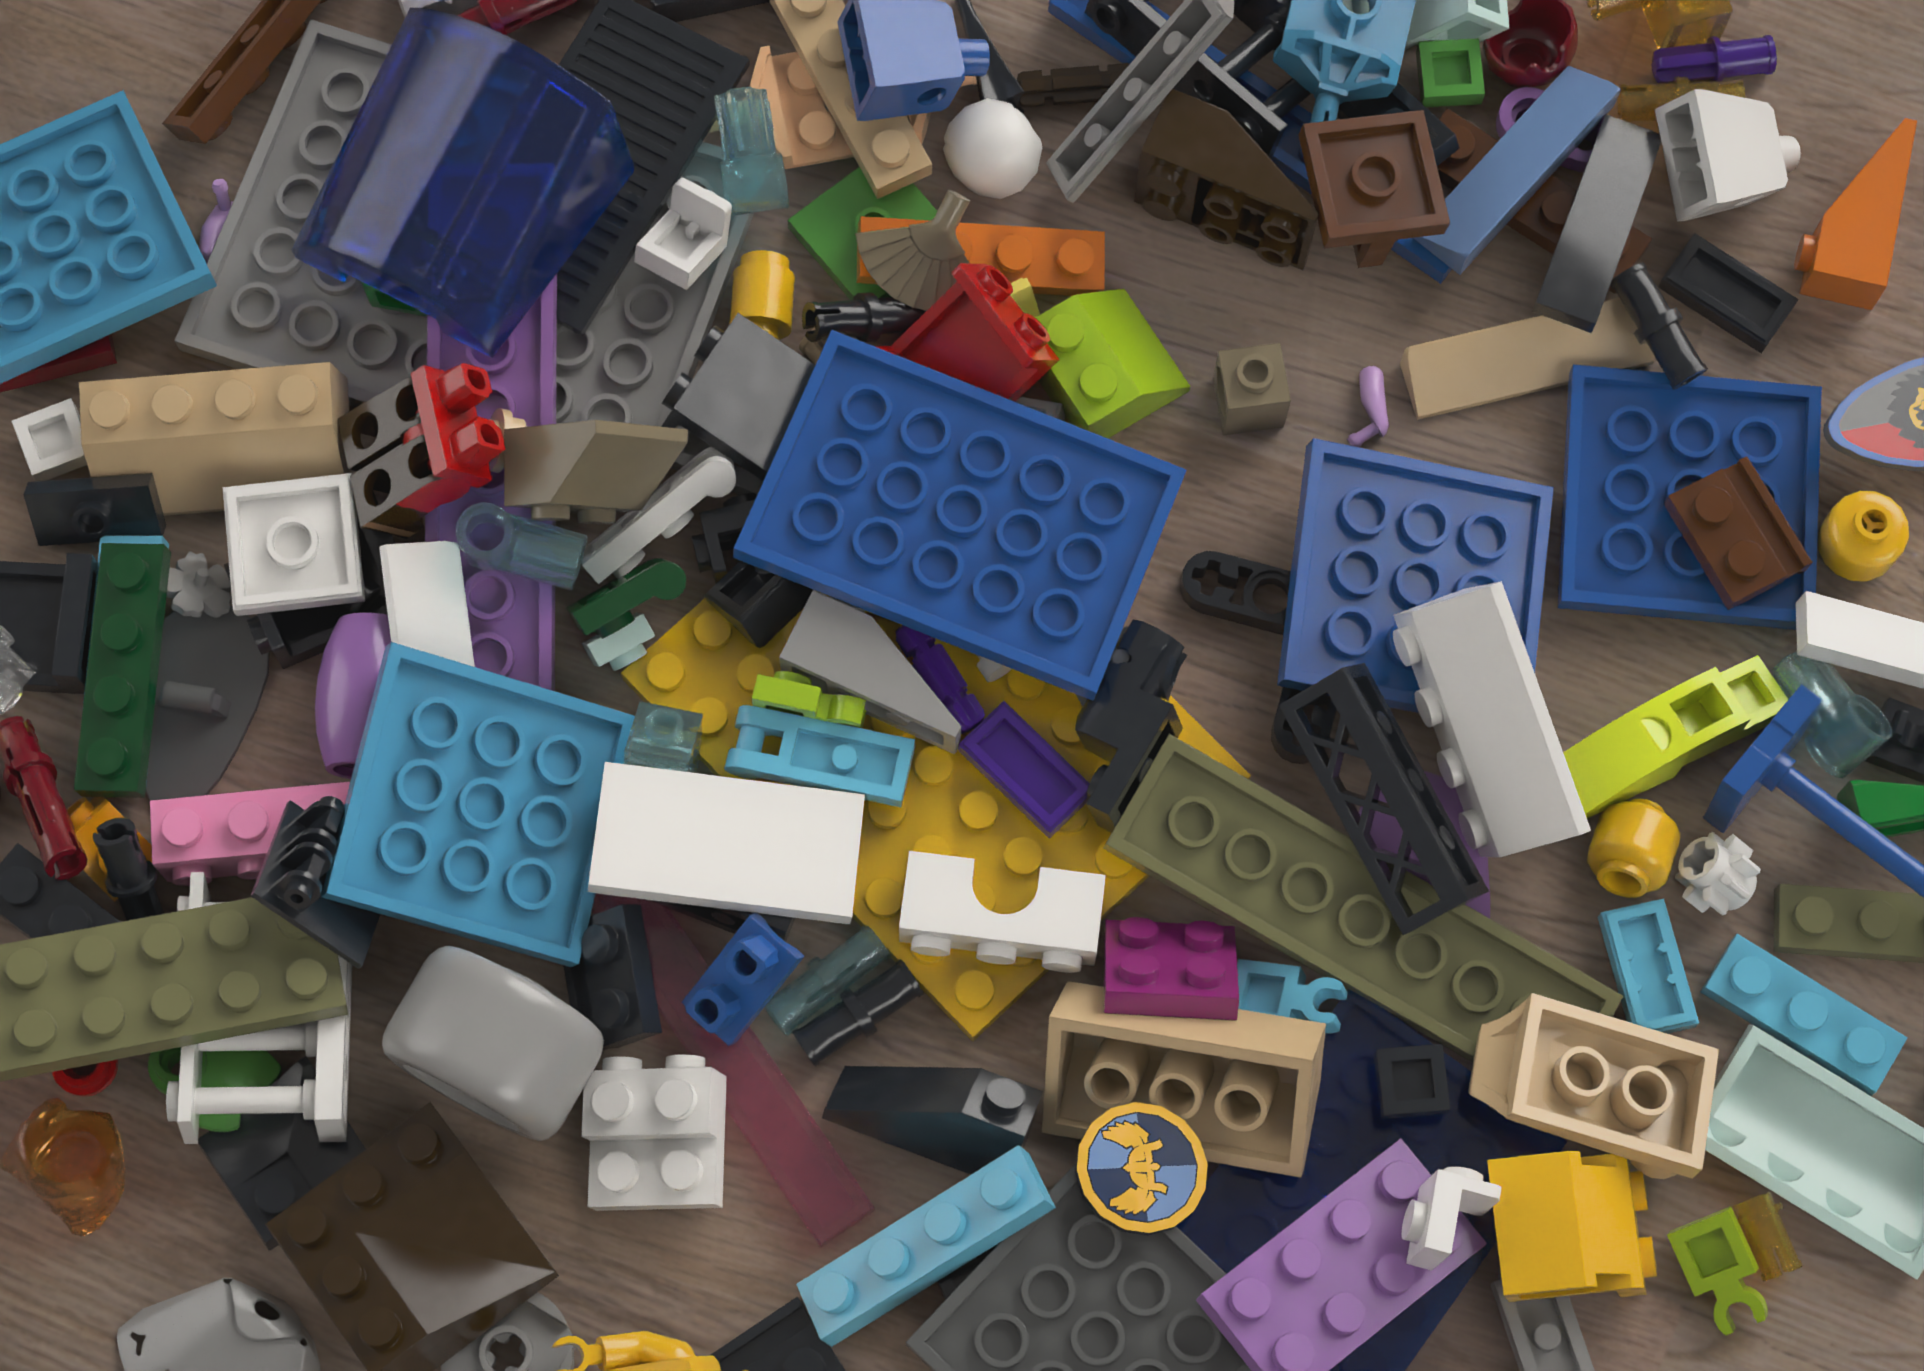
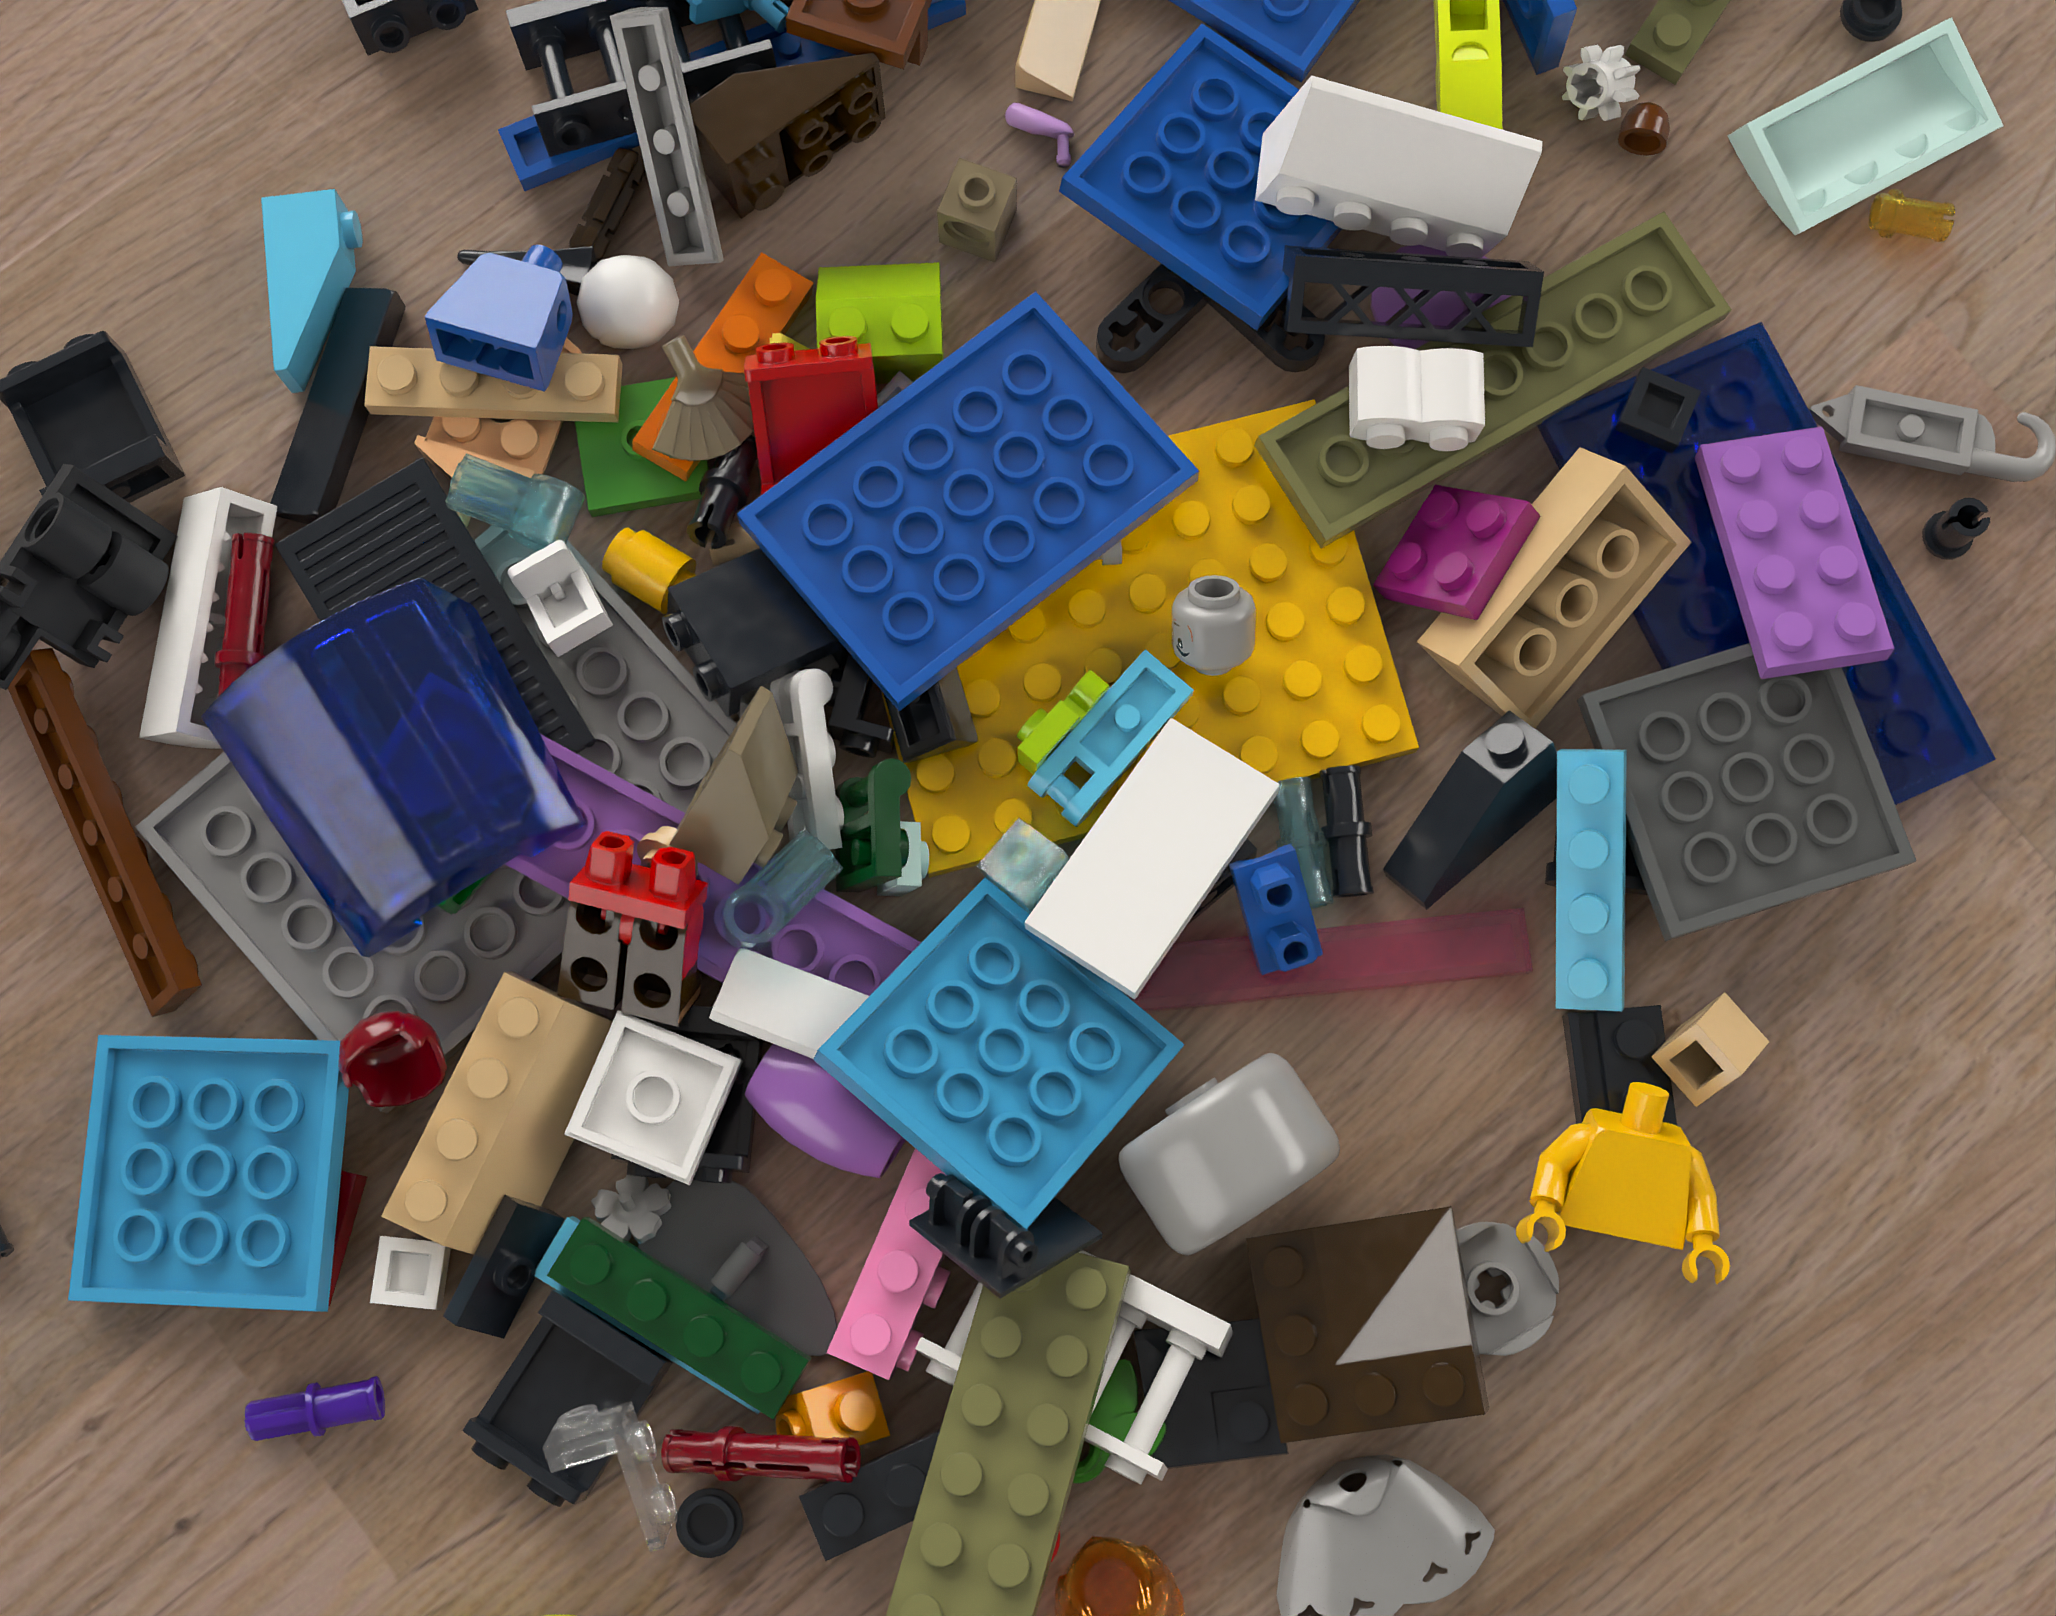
camera: 60 degrees left, 5 degrees up
(128, 872) = (883, 1406): black axle -> none
(215, 221) = (279, 1014): lavender piece -> none
(217, 320) = (392, 1059): none -> dark red hair
(615, 978) = (1214, 1020): black plate -> none
(655, 1134) = (1370, 1059): white plate -> none
(854, 657) = (1047, 657): light grey slope -> none
(941, 676) = (1098, 601): dark purple axle -> none
(945, 914) = (1306, 704): white arch -> none
(968, 785) = (1213, 625): none -> light grey head
(1025, 769) = (1242, 557): dark purple tile -> none
(1129, 717) = (1229, 460): black plate -> none
(1141, 1168) = (1624, 663): shield -> none
(1283, 849) = (1416, 396): none -> white brick
(1283, 992) = (1526, 475): medium azure plate -> none
(1433, 1217) = (1797, 442): white bracket -> none
(1570, 1226) = (1841, 357): yellow piece -> none
(1599, 1083) = (1736, 266): tan slope -> none
(1633, 848) = (1554, 121): yellow head -> none
(1648, 967) = (1647, 182): medium azure plate -> none
(1702, 940) = (1644, 129): none -> reddish brown hinge
(1717, 1259) = (1915, 263): lime plate -> none
(1803, 1014) = (1745, 88): medium azure plate -> none

